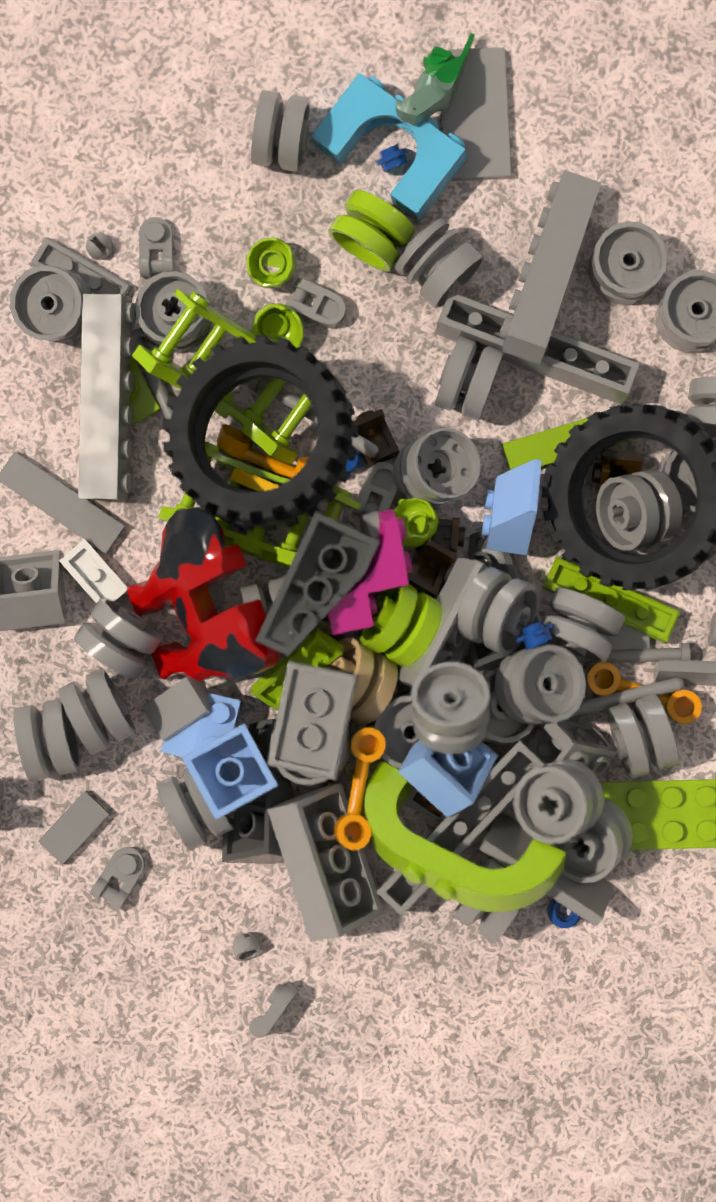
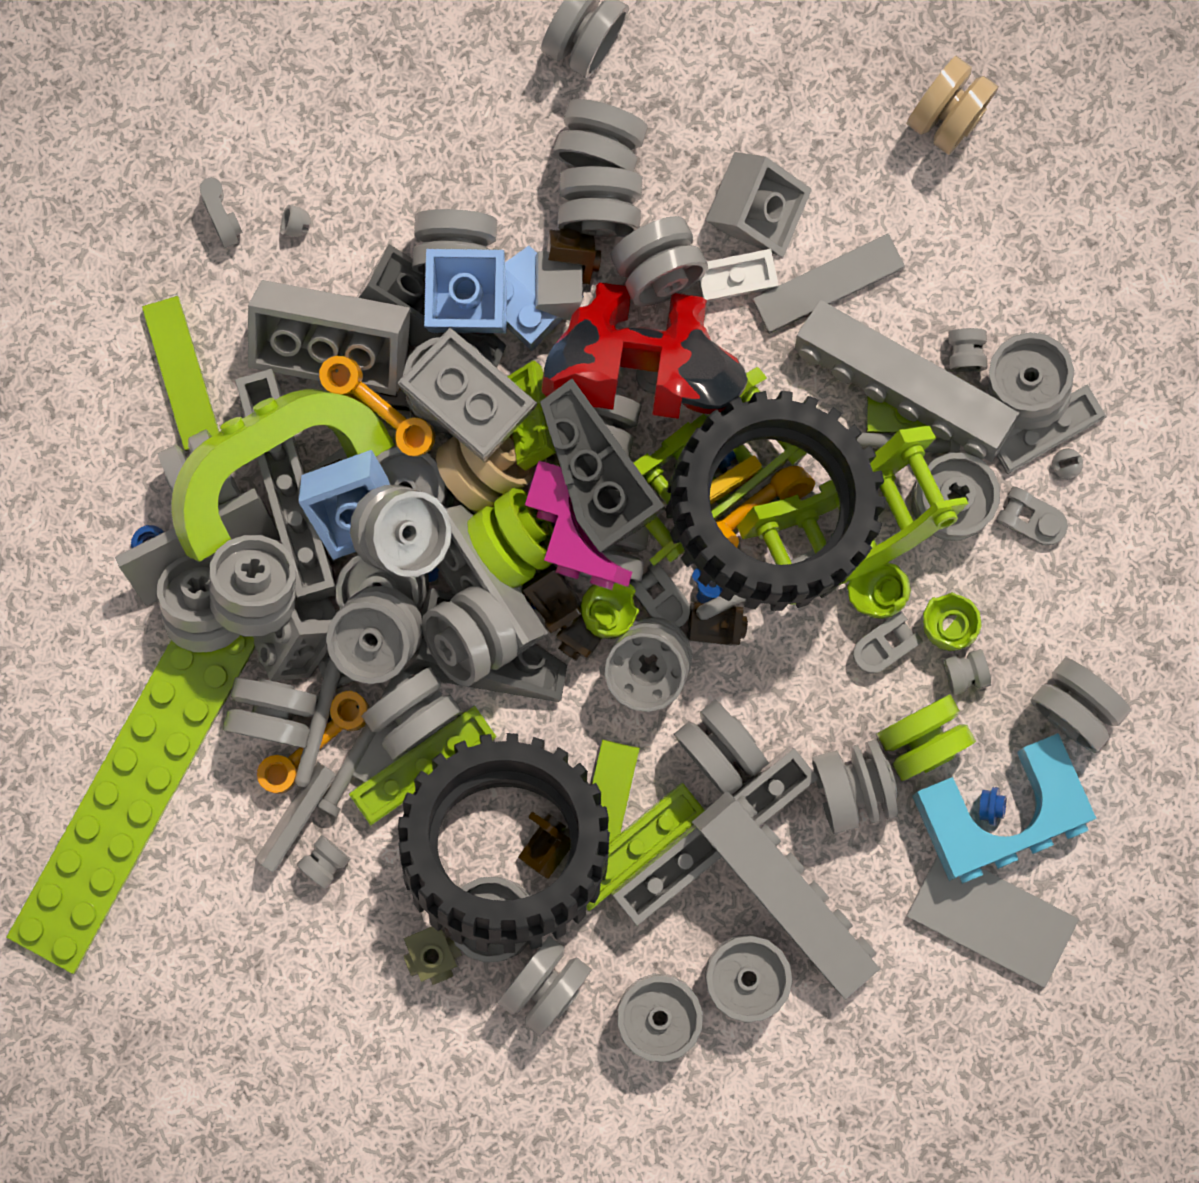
camera: 120 degrees right, 0 degrees up
(53, 367) = (967, 349): none -> light grey wheel
(74, 827) = (503, 122): light grey tile -> none
(127, 866) = (437, 151): light grey plate -> none
(145, 711) = (576, 248): none -> dark brown bracket
(303, 232) = (967, 672): none -> light grey wheel
(415, 967) = (180, 368): none -> lime tile
(435, 85) = (1040, 888): animal -> none
(512, 509) = (565, 714): light blue slope -> none
(535, 634) = (424, 657): blue plate -> none
(560, 396) = (648, 837): none -> lime tile
(639, 509) = (492, 838): light grey wheel -> none

